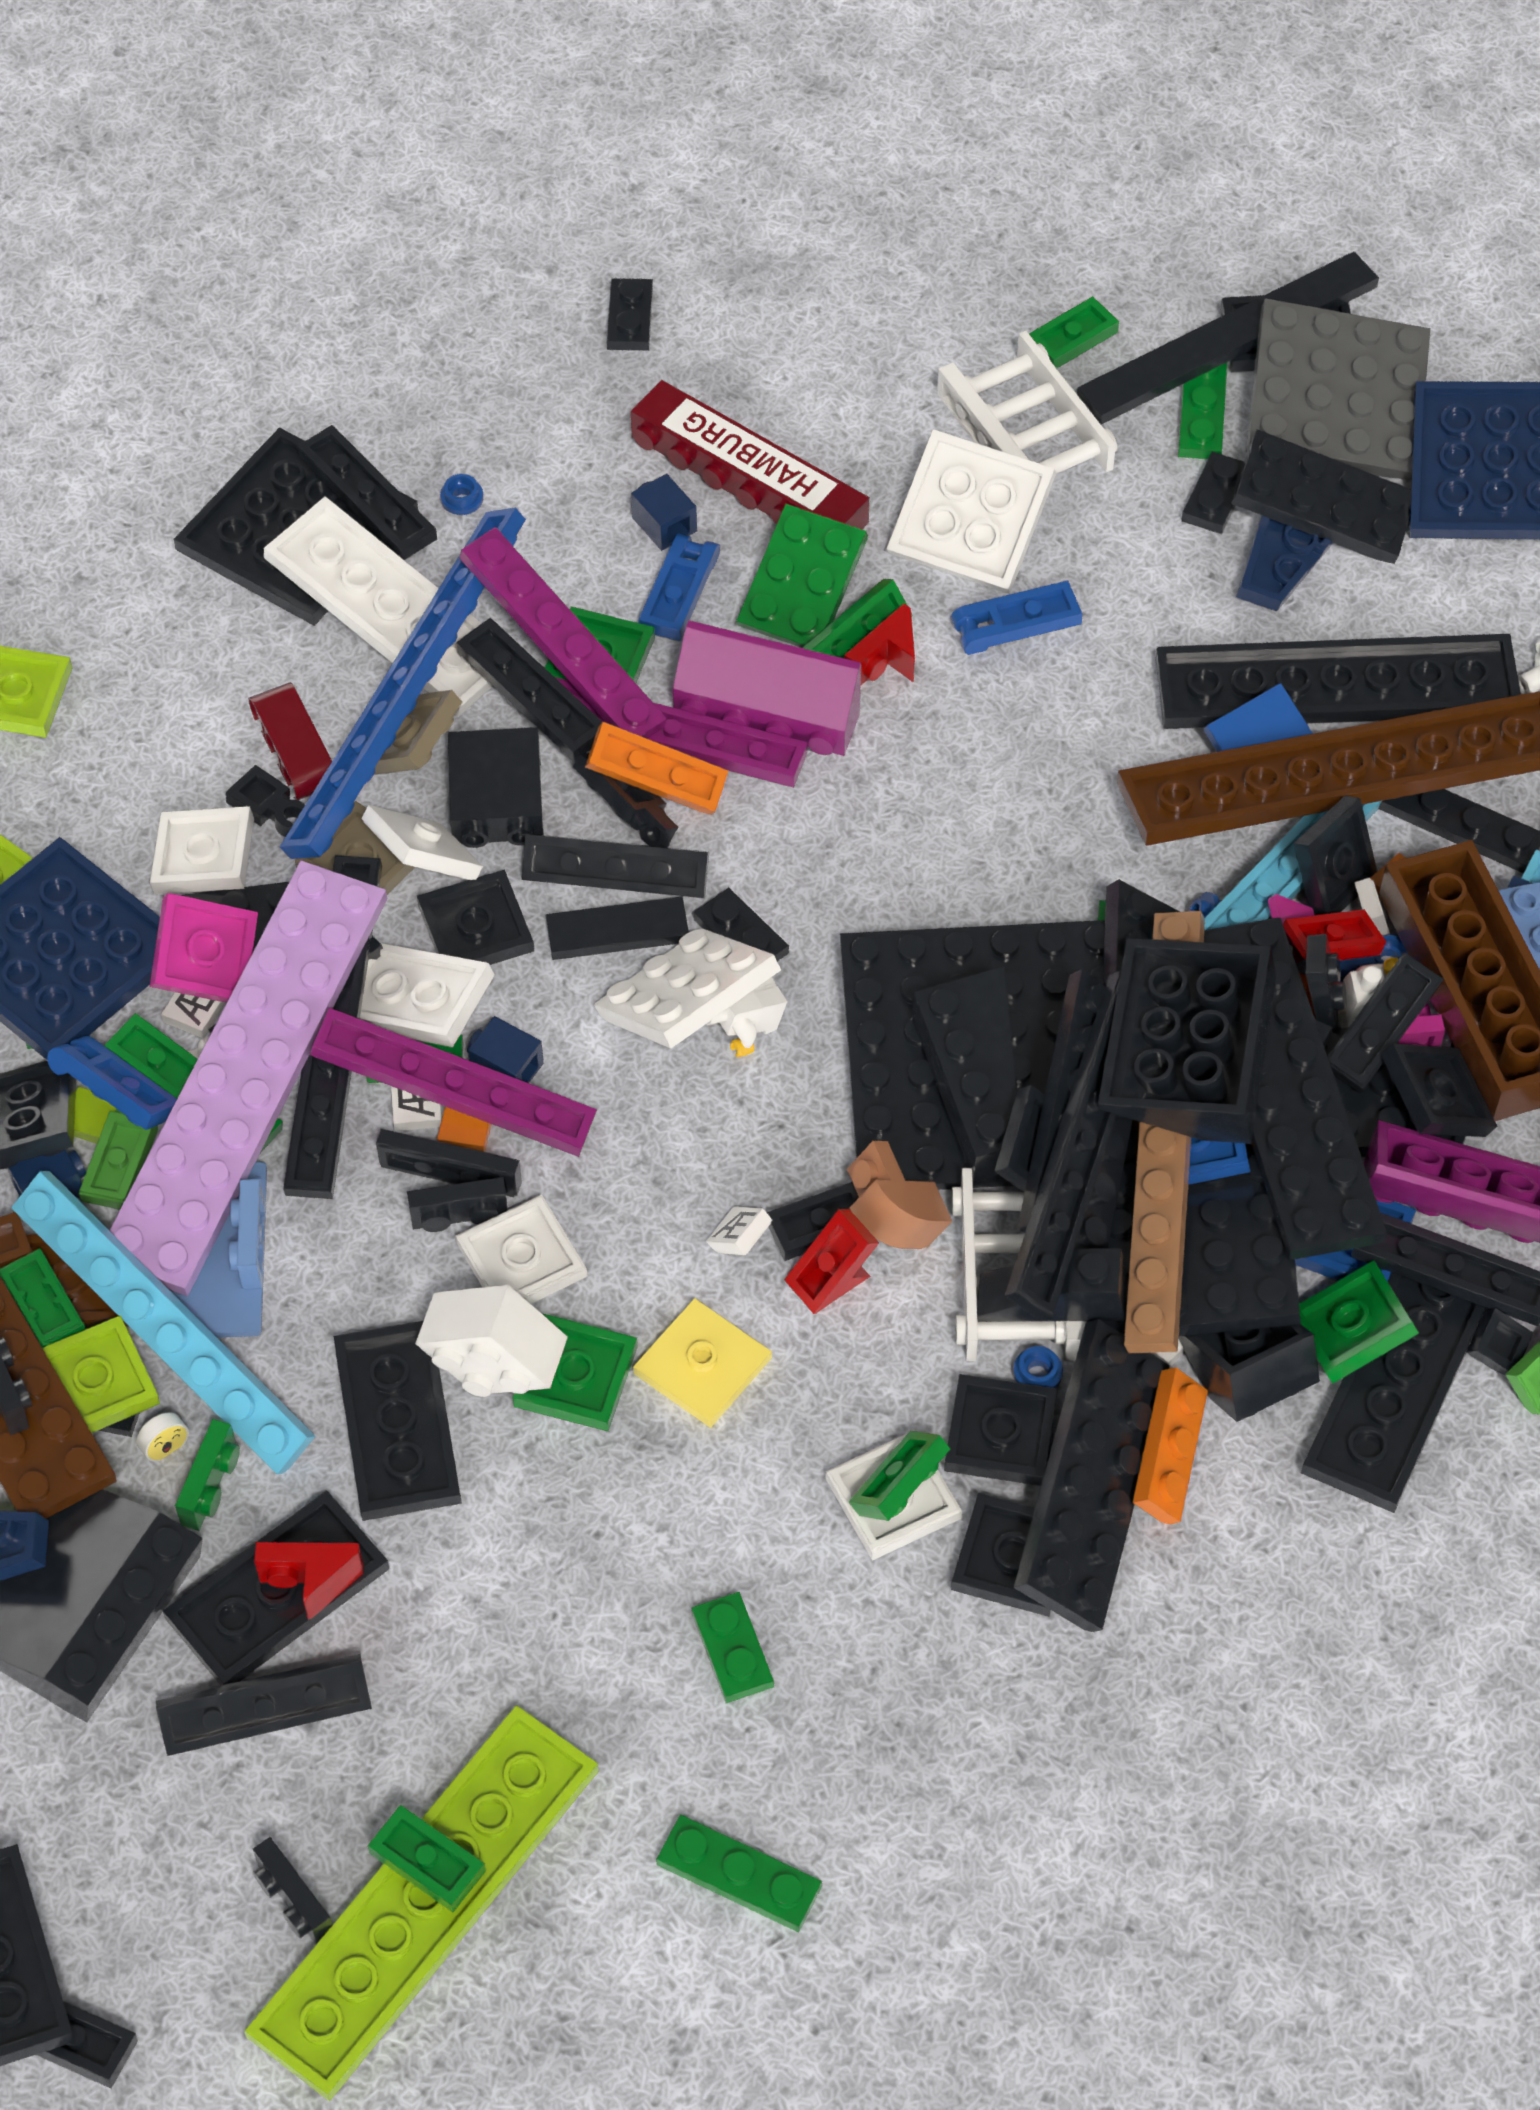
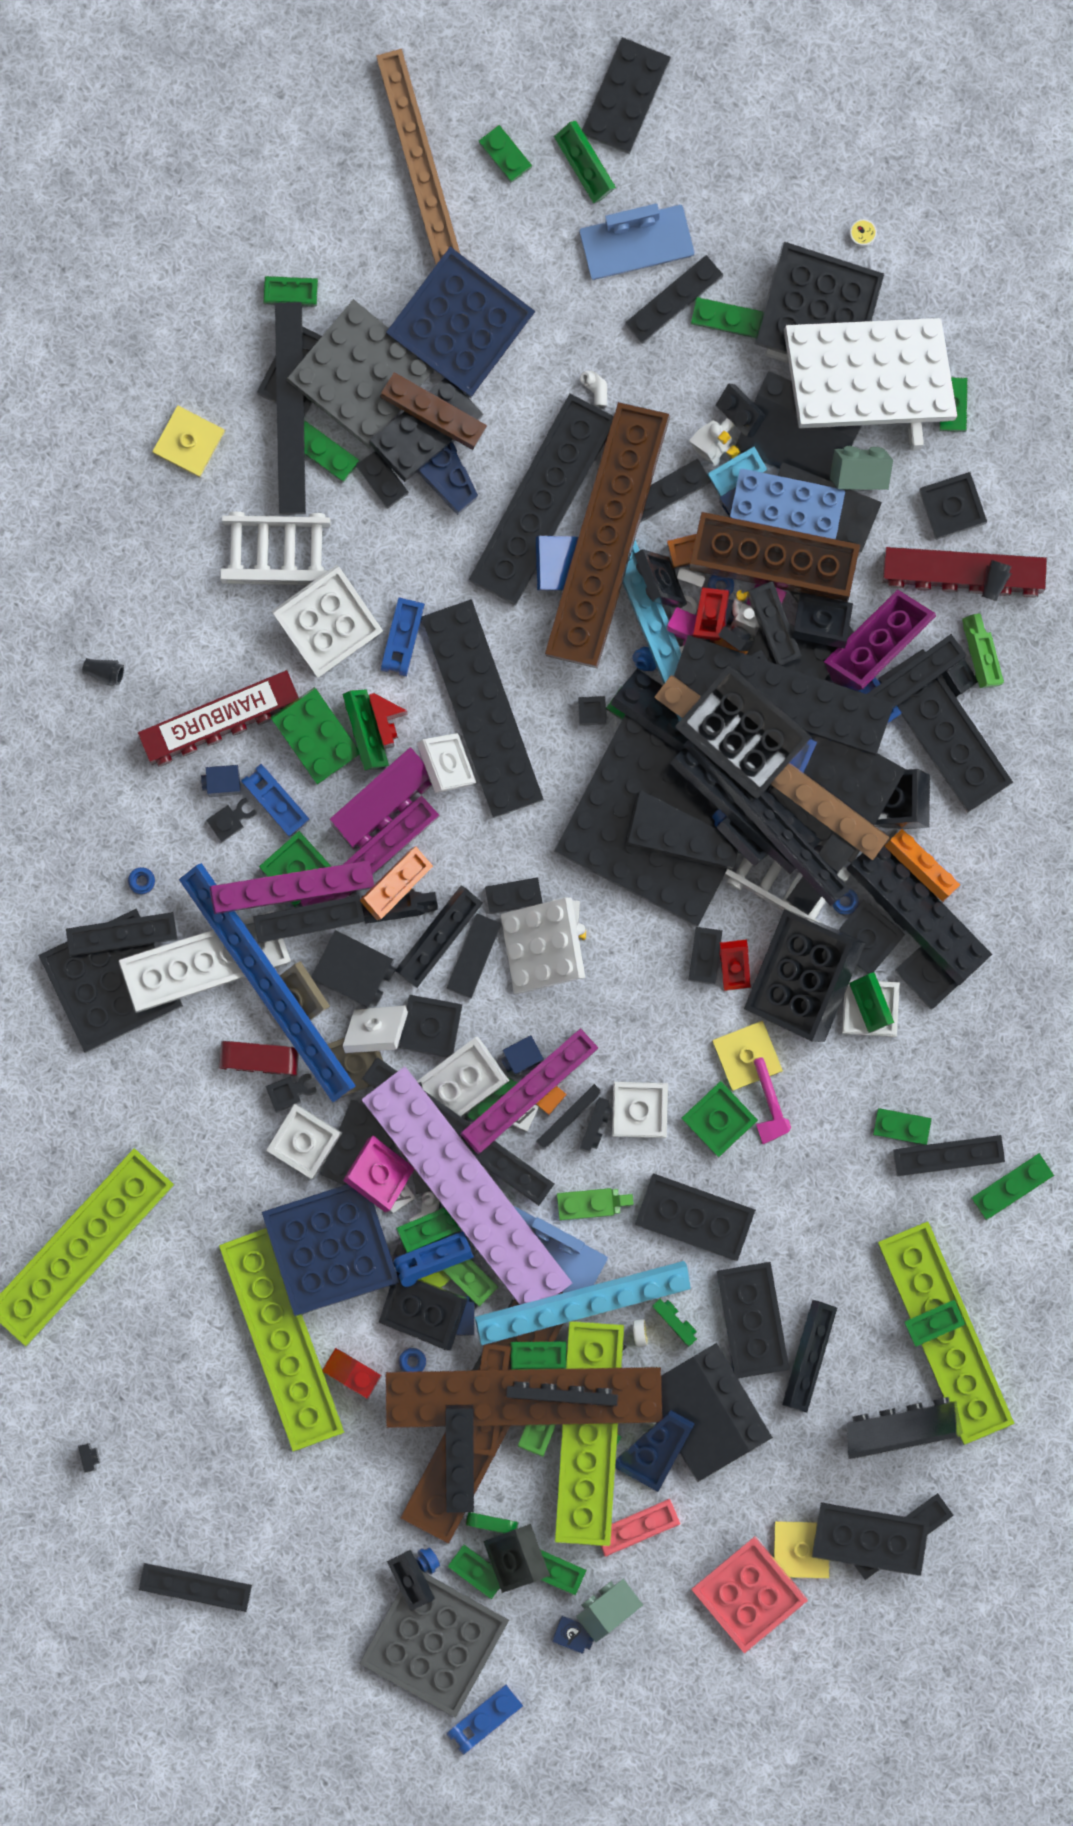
camera: 60 degrees left, 25 degrees up
(211, 1901) = (903, 1429): none -> black slope
(278, 1876) = (899, 1393): black plate -> none
(322, 1568) = (766, 1295): red slope -> none
(333, 1268) = (591, 1203): none -> bright green hinge
(491, 1340) = (694, 1154): white brick -> none
(613, 549) = (227, 822): none -> black plate
(620, 1466) = (779, 1125): none -> dark pink piece
(630, 314) = (65, 717): black plate -> none
(723, 323) = (106, 671): none -> black cone
(728, 1742) = (948, 1155): none -> black plate
(739, 1230) = (689, 997): white tile -> none
(873, 742) = (446, 762): none -> white plate
(878, 1363) = (804, 976): none -> black slope
(895, 1209) = (724, 919): nougat brick -> none
(984, 762) = (482, 708): none -> black plate
(1076, 331) = (229, 486): green plate -> none
(1080, 889) = (592, 710): none -> black plate
(1099, 267) = (188, 441): none -> light yellow plate
(1354, 483) = (433, 411): none -> reddish brown plate
(1355, 1321) = (915, 741): green plate -> none
(1396, 283) = (290, 290): none -> green plate

